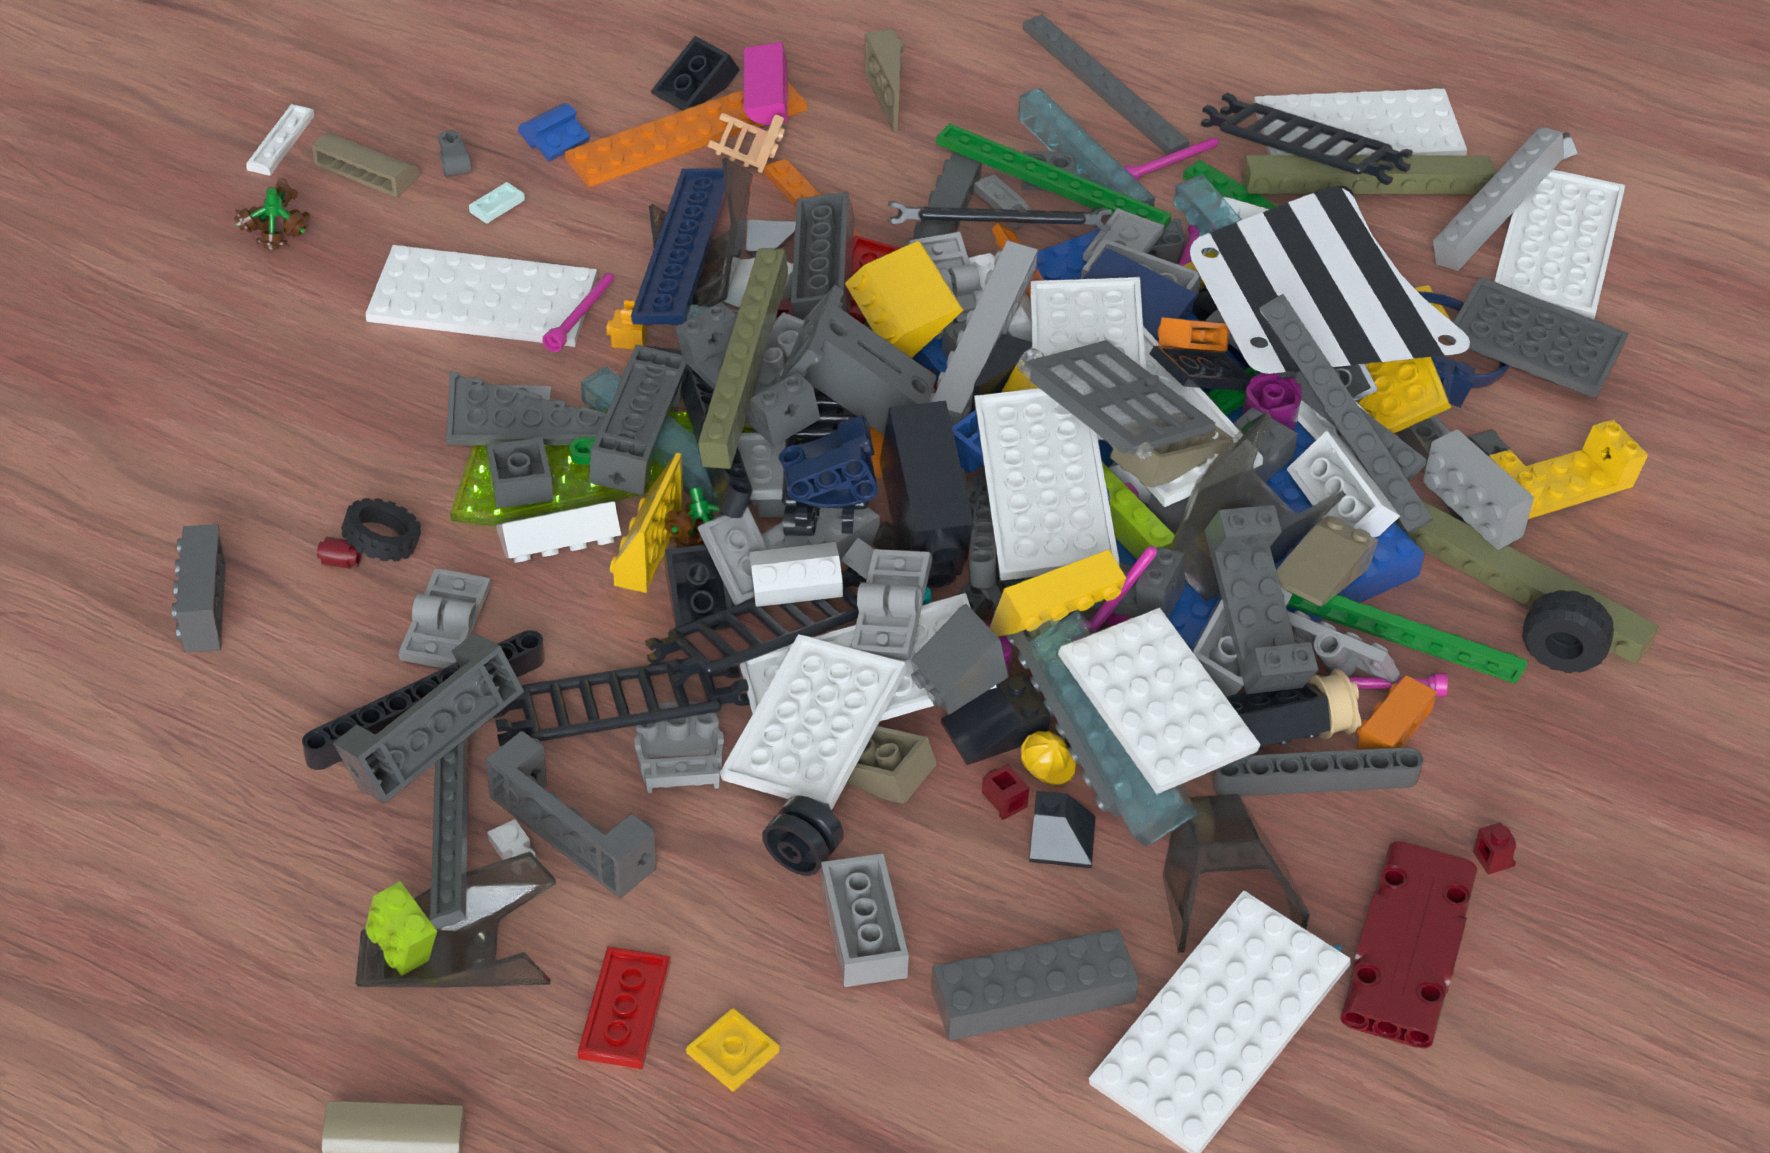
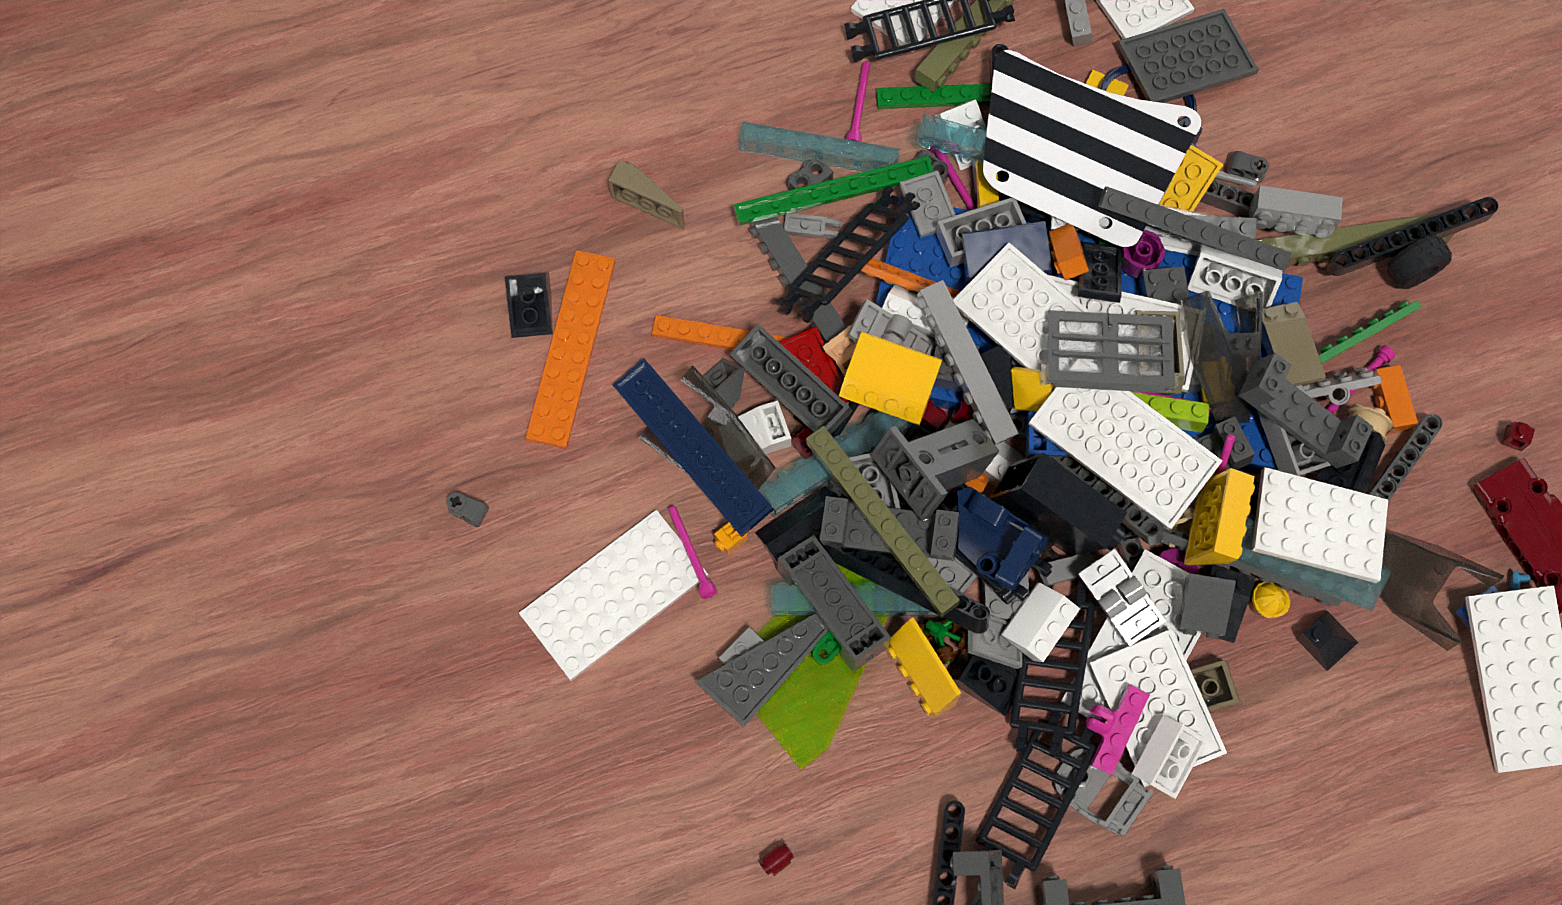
camera: 45 degrees left, 25 degrees up
(264, 216) = (420, 672): reddish brown plant -> none
(280, 139) = (341, 600): white tile -> none
(364, 164) = (420, 568): dark tan brick -> none
(375, 544) = (781, 843): black tyre -> none
(443, 617) = (885, 840): light grey plate -> none
(496, 202) = (536, 518): light aqua plate -> none
(519, 472) = (816, 708): dark grey brick -> none
(554, 131) = (500, 429): blue brick -> none
(559, 530) = (868, 717): white slope -> none
(752, 696) = (1116, 727): none -> dark pink plate
(762, 146) = (634, 318): light nougat plate -> none
(765, 83) = (586, 271): dark pink brick -> none
(769, 757) = (1169, 756): none -> white slope
(803, 835) = (1230, 779): black wheel -> none
(864, 920) = (1311, 799): light grey brick -> none
(1005, 791) = (1284, 643): dark red brick -> none
(1034, 984) = (1421, 747): dark grey brick -> none
(1105, 85) = (757, 75): dark grey plate -> none
(1603, 467) = (1306, 143): yellow plate -> none
(1630, 617) = (1418, 230): none -> black beam

